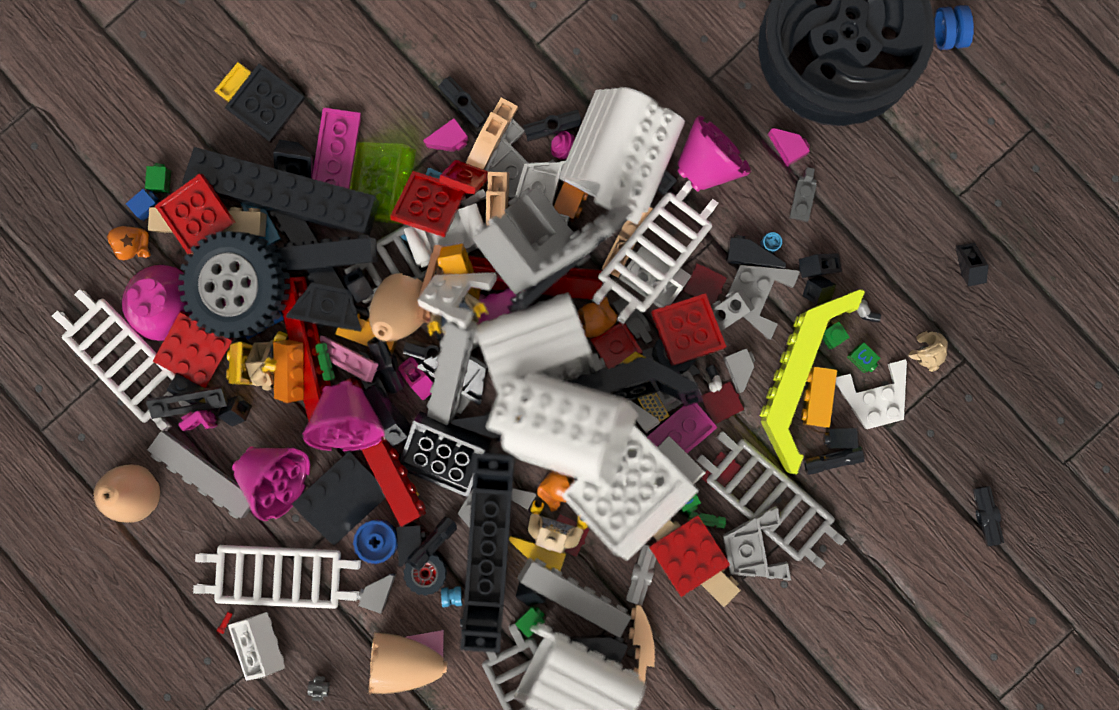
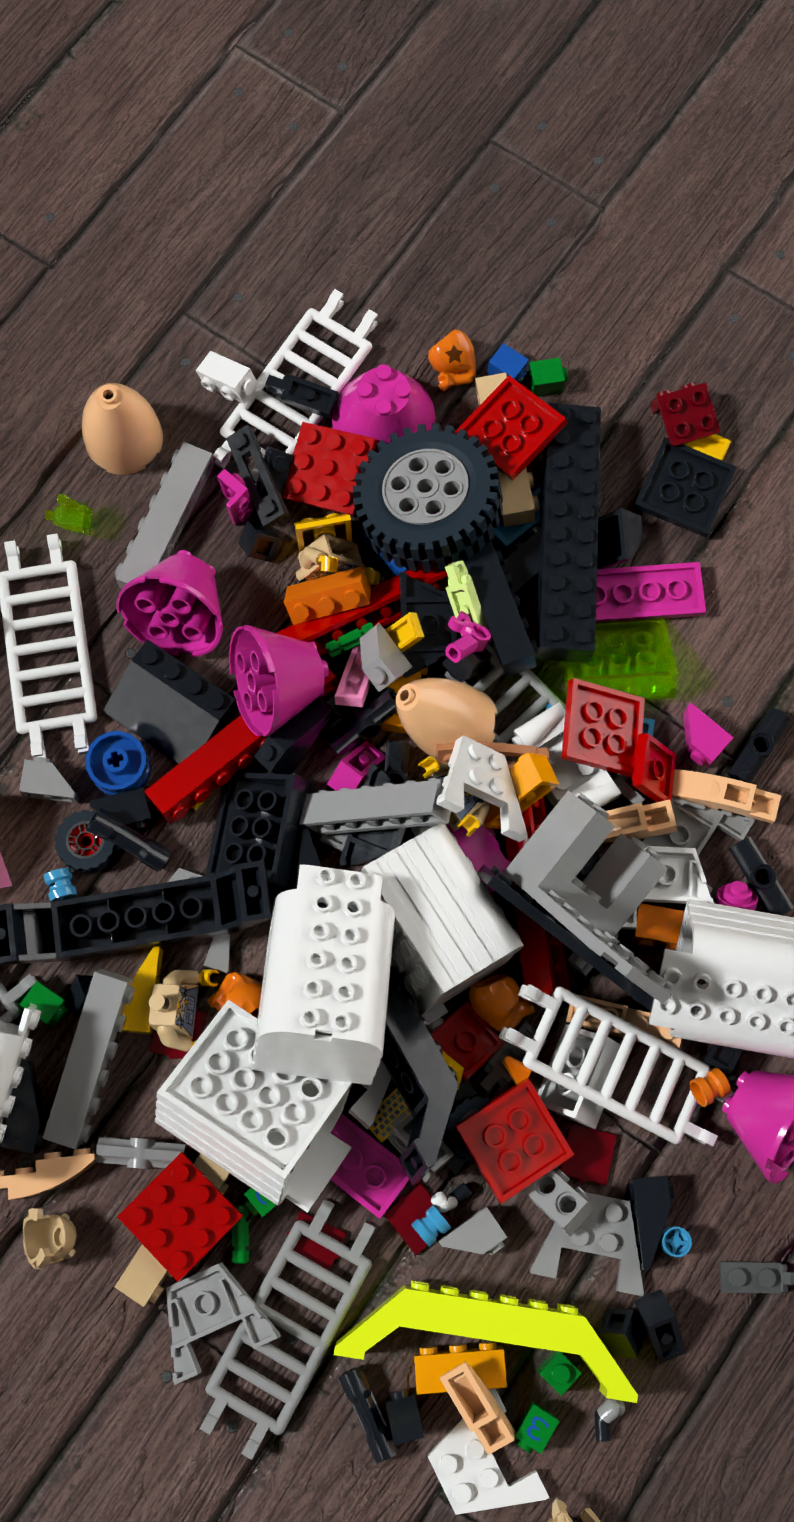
camera: 75 degrees right, 10 degrees down
(103, 408) = (226, 377): none -> white brick
(131, 356) = (303, 394): none -> black hinge
(184, 543) = (70, 516): none -> clear neon green piece
(211, 87) = (687, 413): none -> dark red bracket
(318, 276) = (463, 593): none -> yellowish green hinge
(332, 327) = (406, 631): none -> yellow tile
(345, 343) = (381, 658): none -> light grey slope
(348, 277) = (473, 637): none -> dark pink bar
(643, 317) = (516, 1069): none -> orange slope
(682, 195) = (711, 1086): none -> orange wheel
(683, 645) = (48, 1238): none -> tan helmet
(729, 396) = (431, 1225): none -> dark azure wheel
(846, 390) = (478, 1407): none -> light nougat slope

